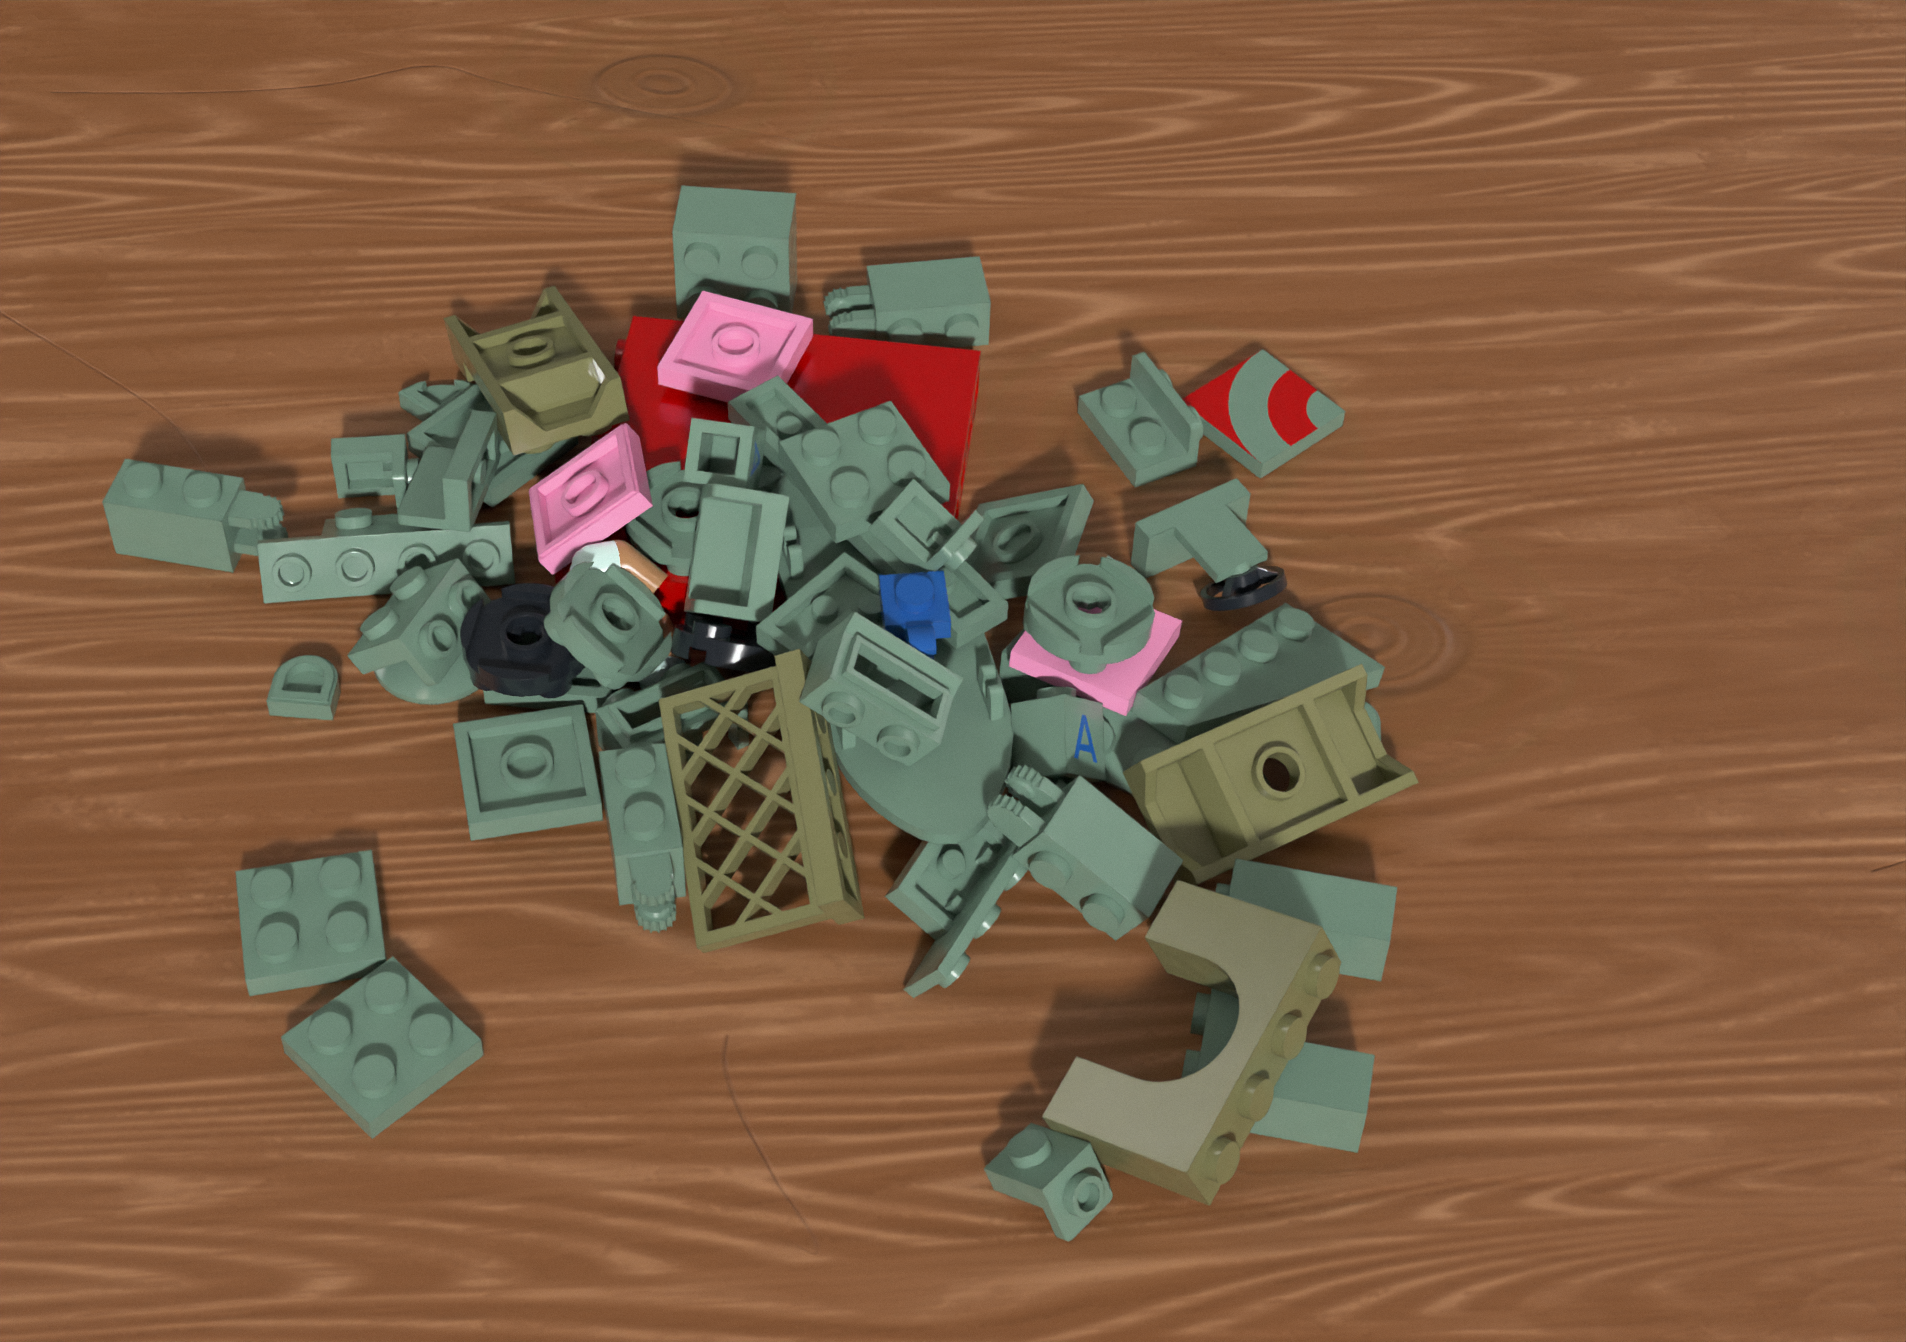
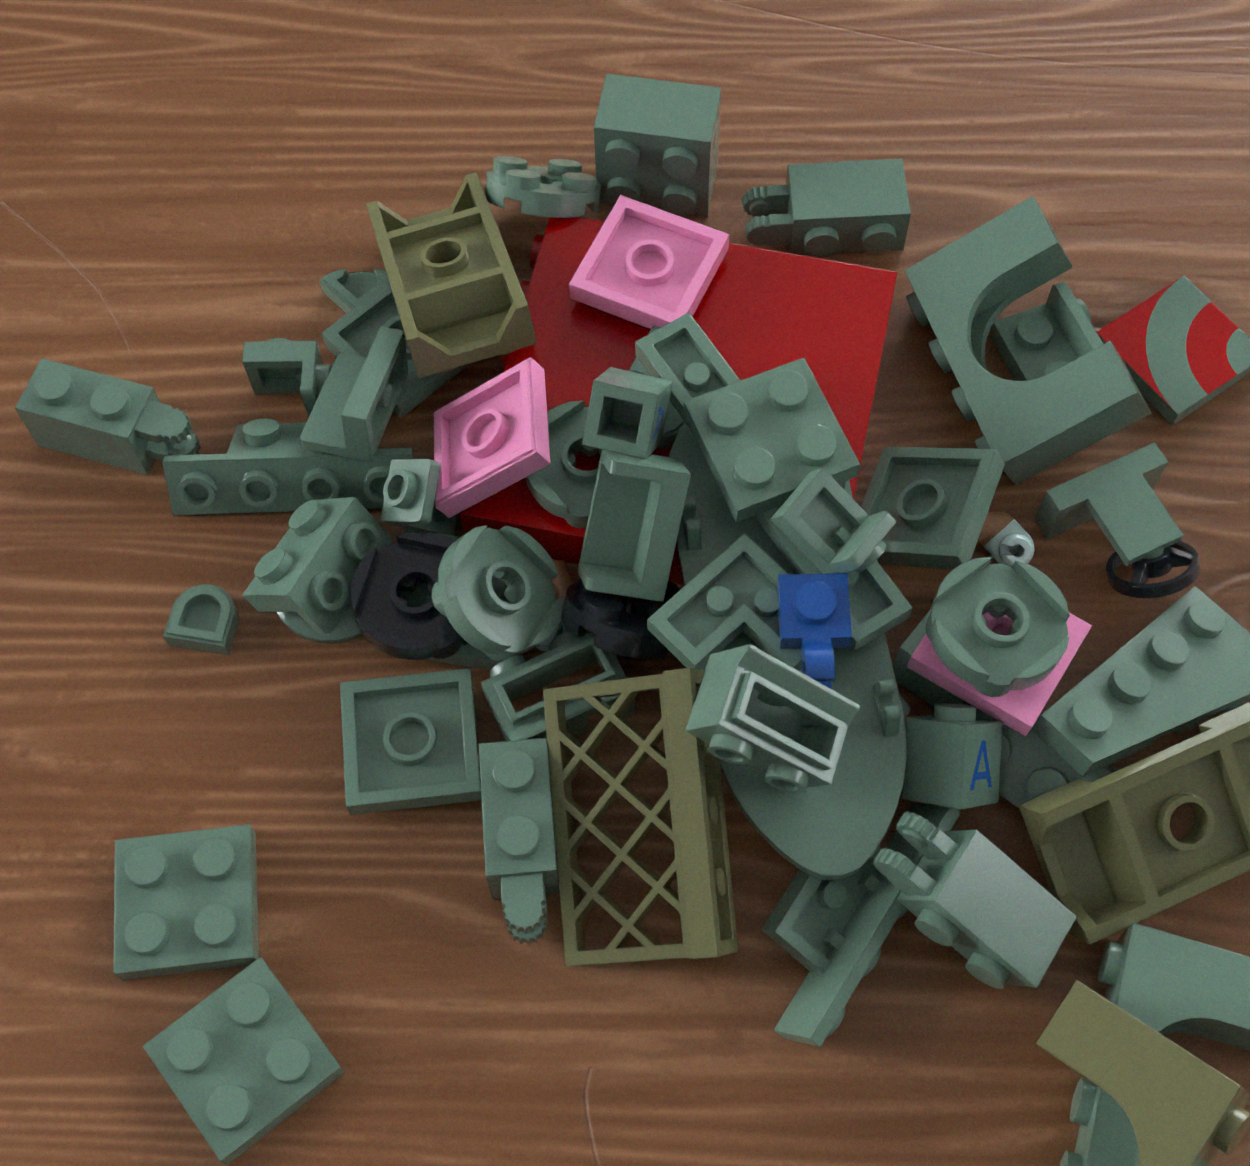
camera: 10 degrees right, 15 degrees up
(514, 554) = (411, 497): none -> sand green bracket
(622, 555) = (516, 512): arm -> none
(639, 298) = (543, 191): none -> sand green plate
(1123, 466) = (961, 297): none -> sand green arch

